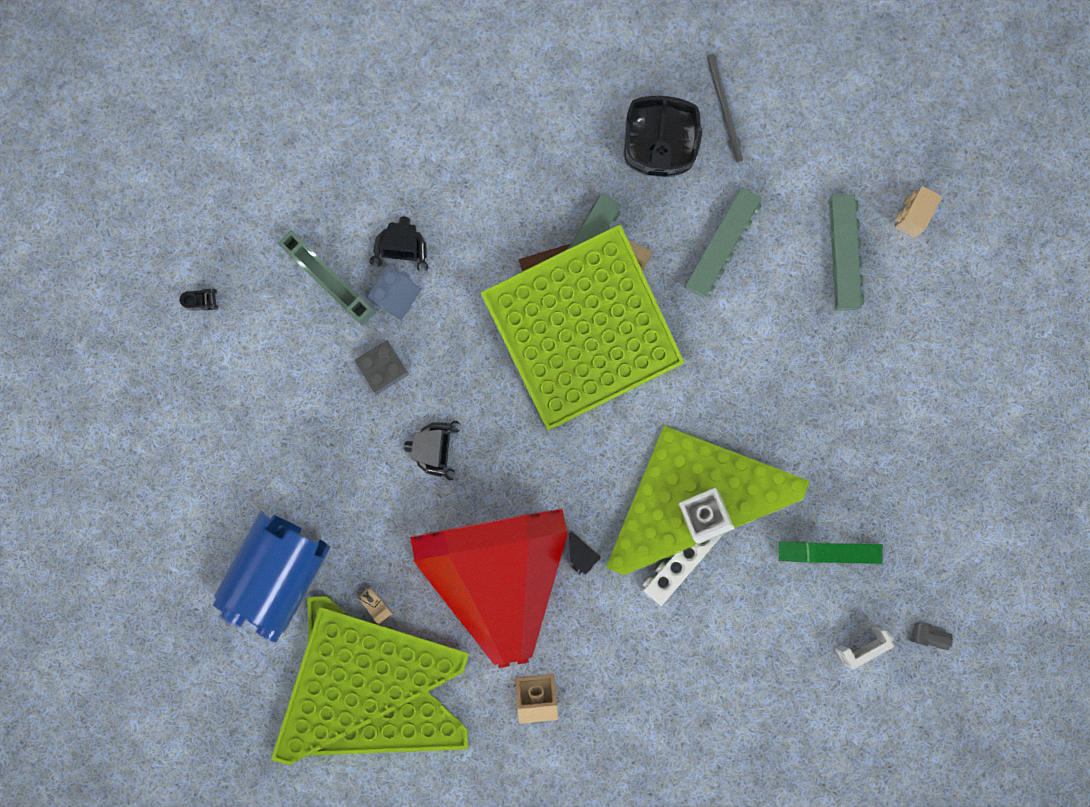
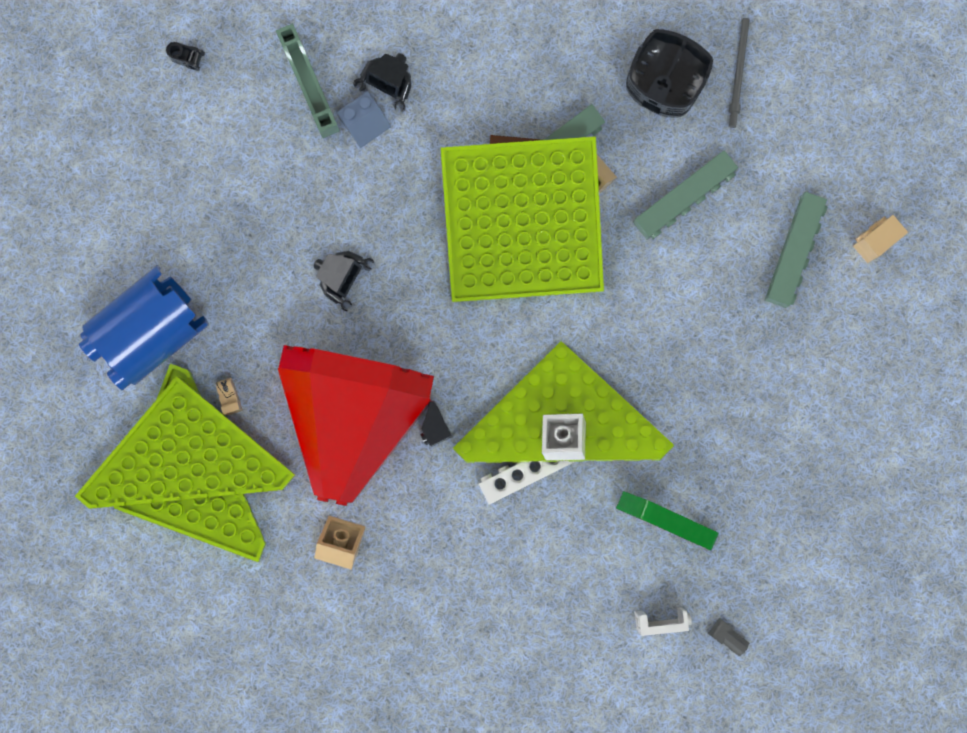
camera: 25 degrees right, 0 degrees up
(381, 367) = (324, 182): dark grey brick -> none

